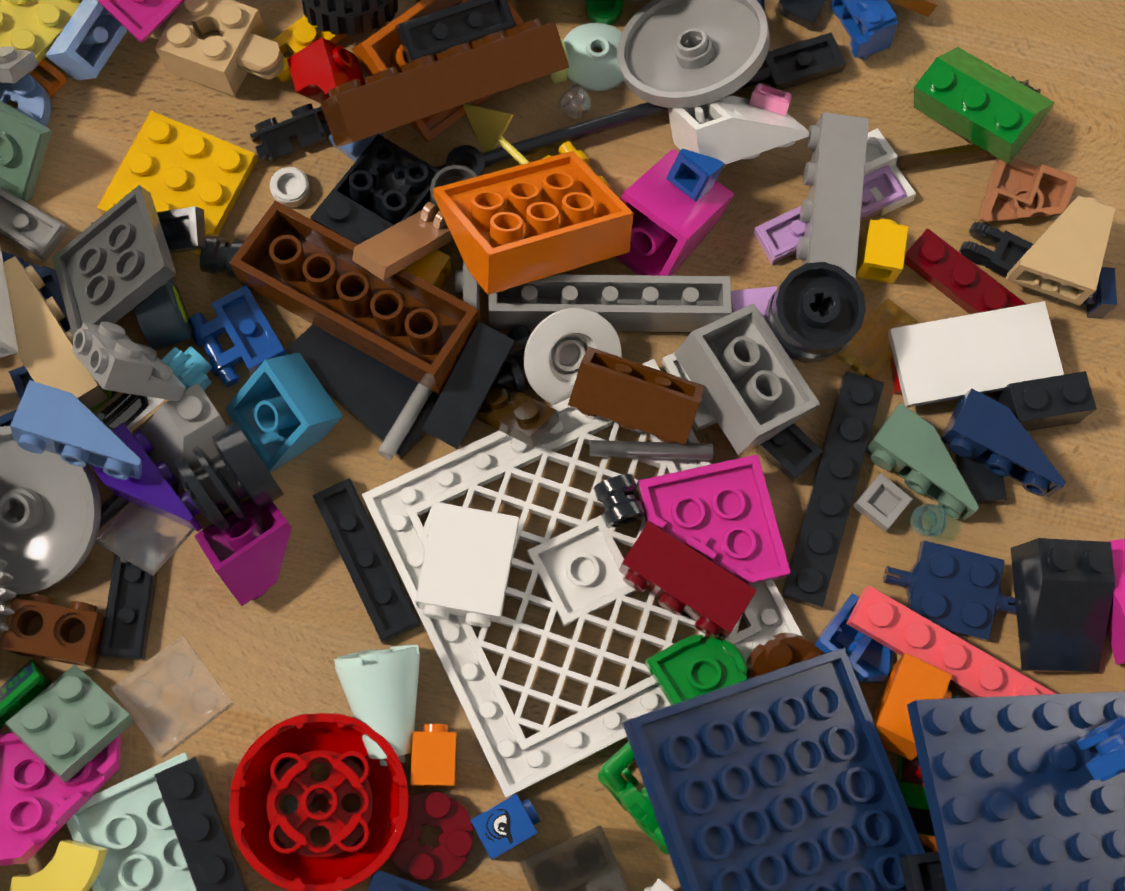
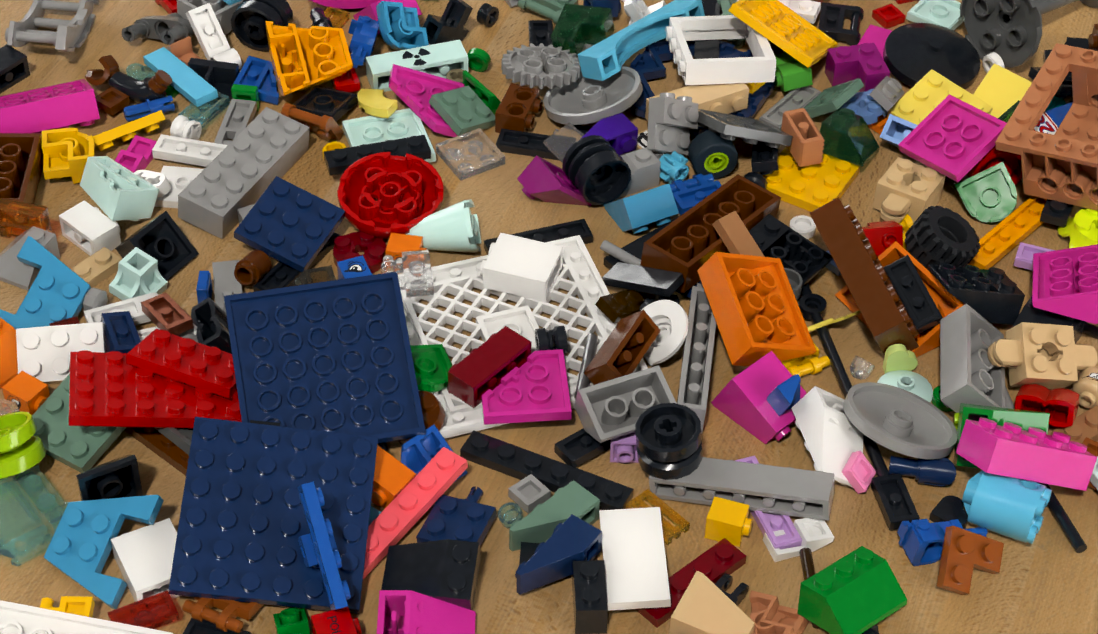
camera: 105 degrees right, 30 degrees down
(65, 426) = (630, 97): medium blue slope -> none
(101, 125) = (848, 137): none -> clear green slope
(121, 171) = (806, 140): none -> nougat brick
(500, 725) = (416, 271): none -> clear plate

